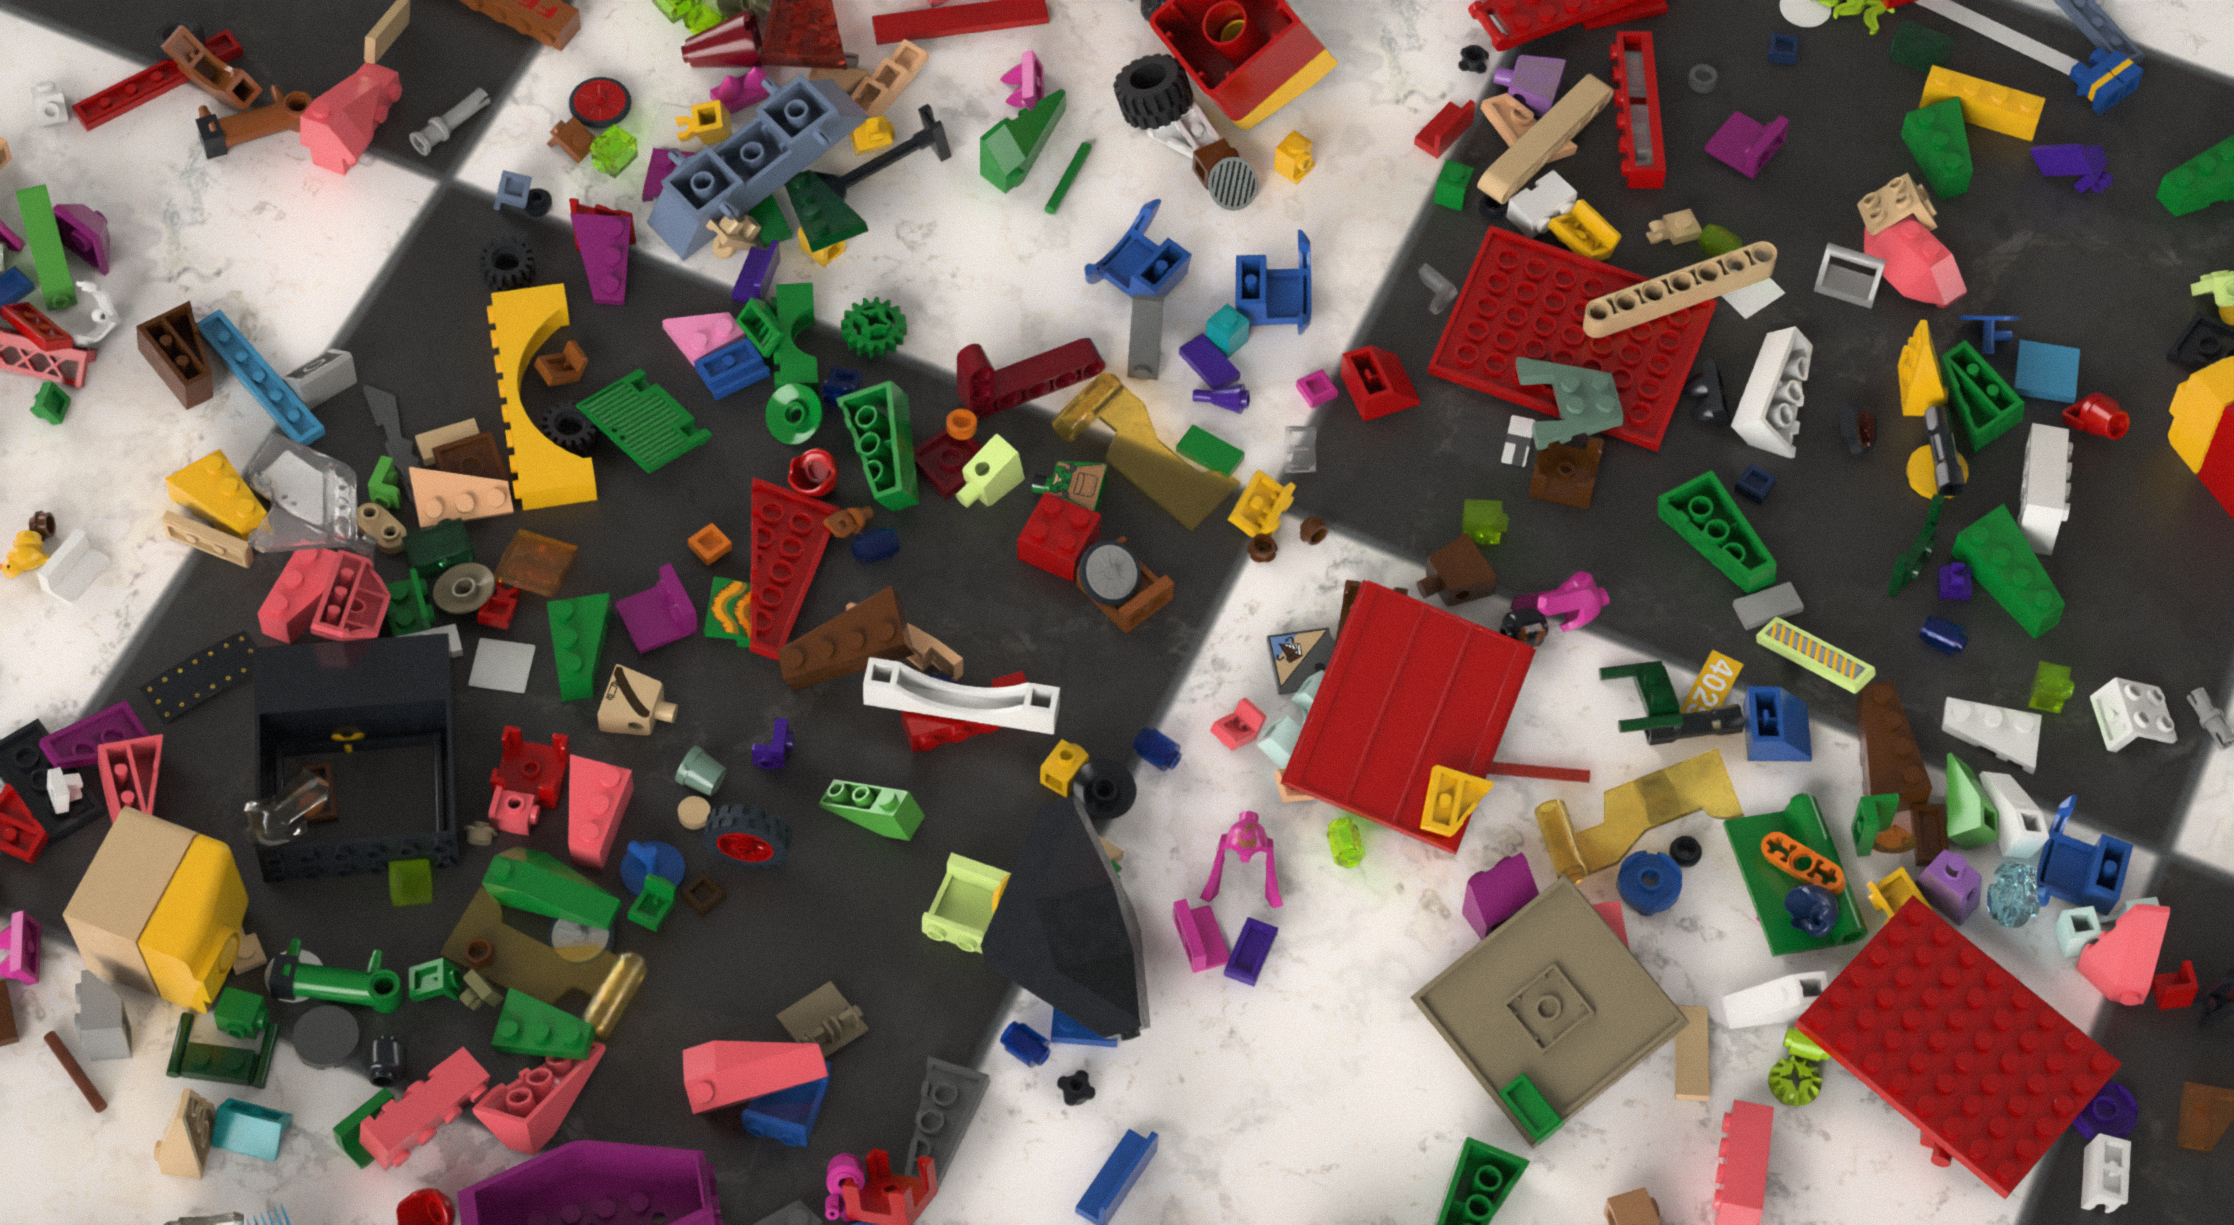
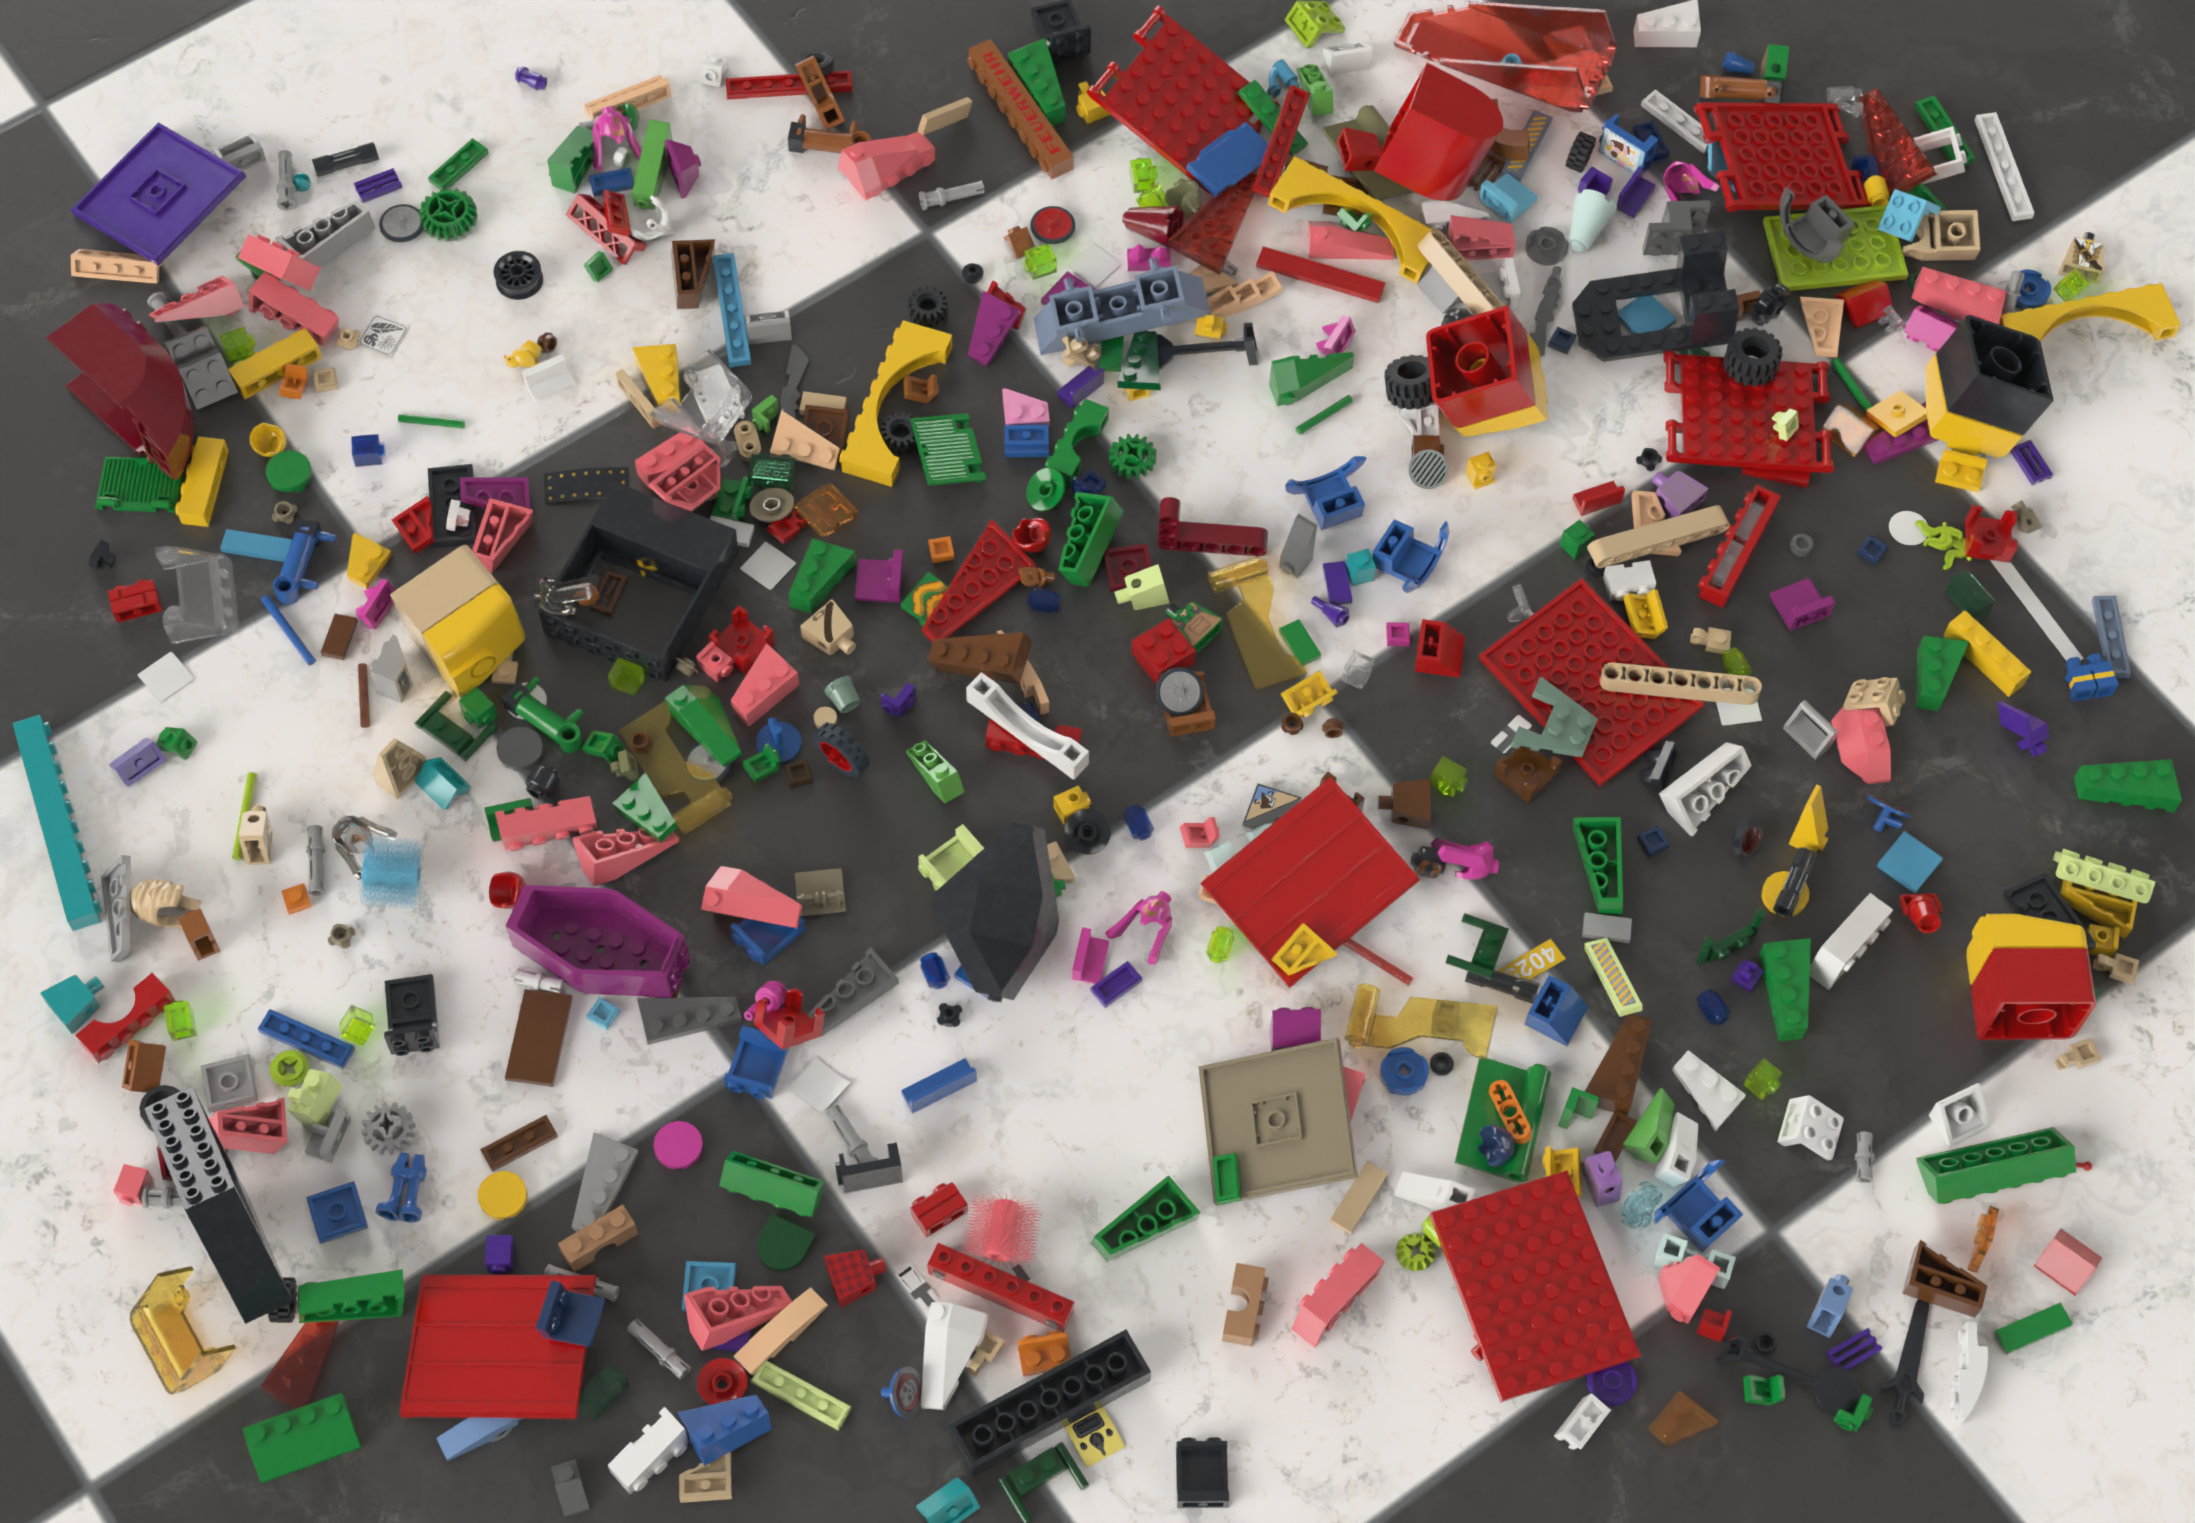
camera: 30 degrees right, 5 degrees up
(512, 190) = (959, 258): sand blue panel -> none
(708, 122) = (1109, 269): yellow brick -> none
(756, 321) = (1059, 420): green slope -> none
(961, 424) = (1148, 547): orange tile -> none
(1894, 841) = (1587, 1128): clear orange tile -> none
(1979, 396) = (1846, 857): green wedge -> none

